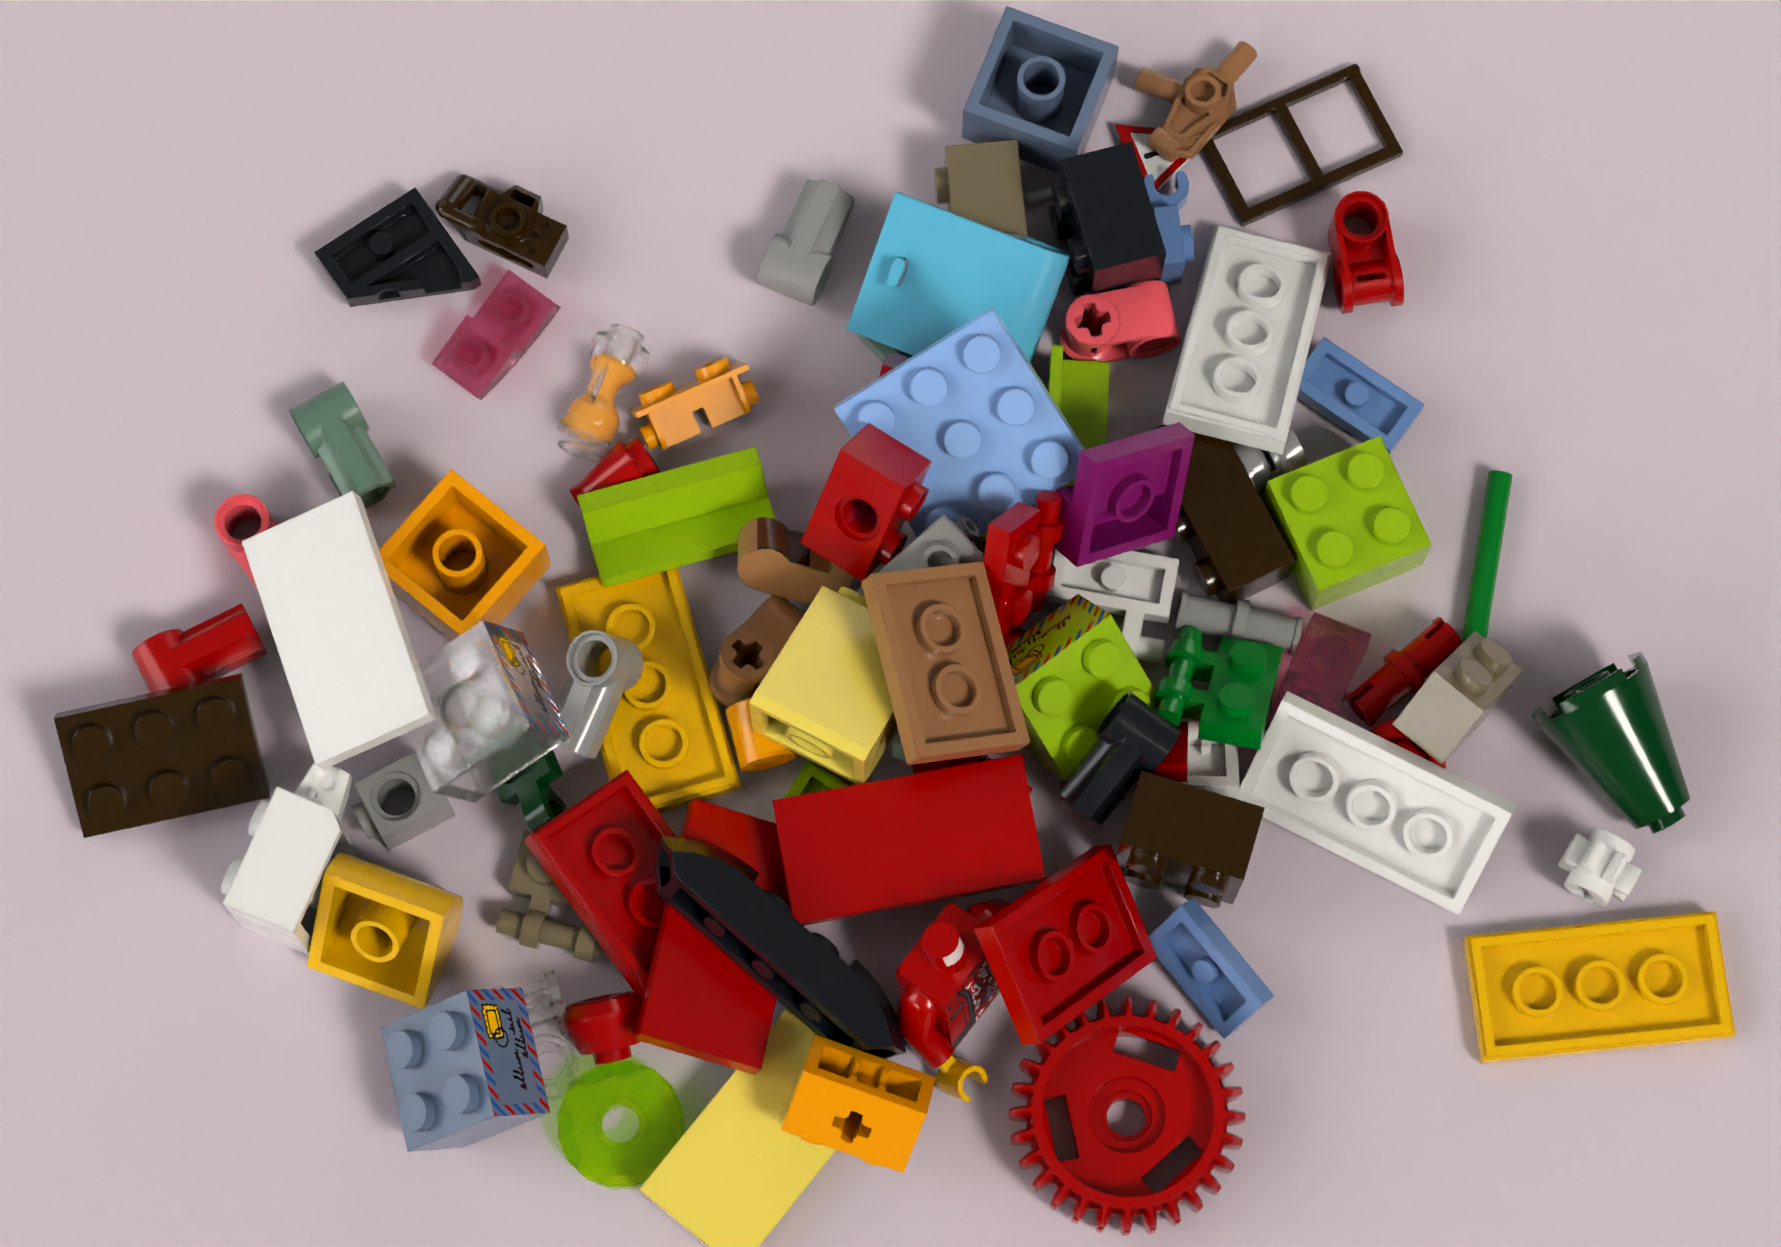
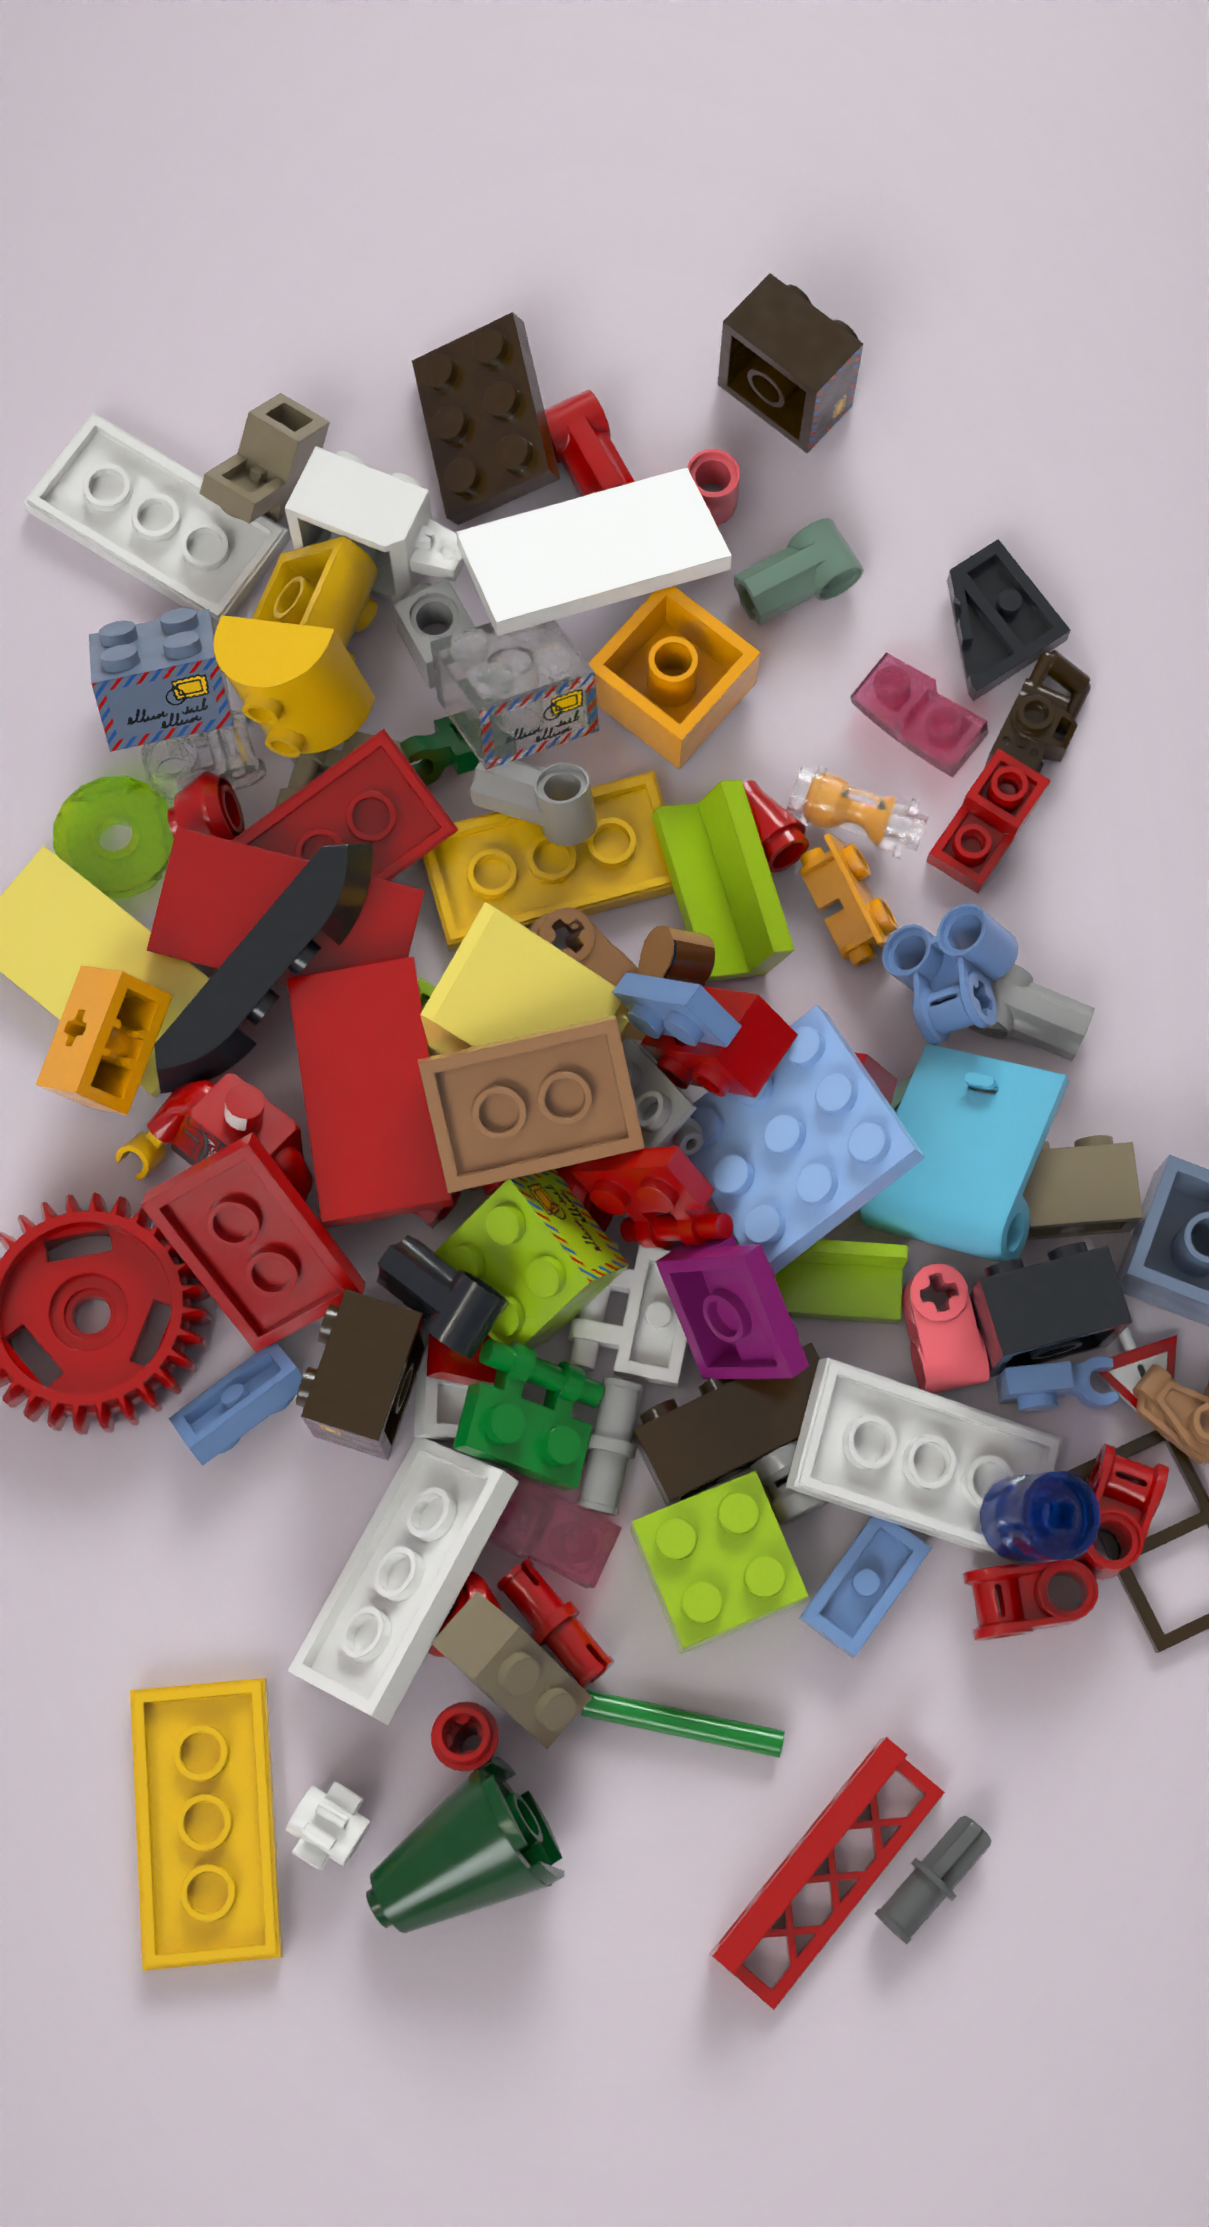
camera: 90 degrees right, 0 degrees up
(118, 443) = (789, 362): none -> dark brown brick
(209, 975) = (268, 462): none -> dark tan brick
(259, 1102) = (153, 521): none -> white tile
(481, 927) = (293, 682): none -> yellow brick
(611, 272) = (988, 820): none -> red slope
(792, 301) = (952, 970): none -> medium blue piece
(858, 515) = (675, 1010): none -> medium blue plate
(1281, 175) = (1127, 1503): none -> red piece
(1300, 236) = (1040, 1516): none -> clear blue wheel
(1523, 722) = (455, 1726): none -> red cone
(1603, 446) = (806, 1858): none -> red fence
(1611, 344) = (934, 1878): none -> dark grey axle

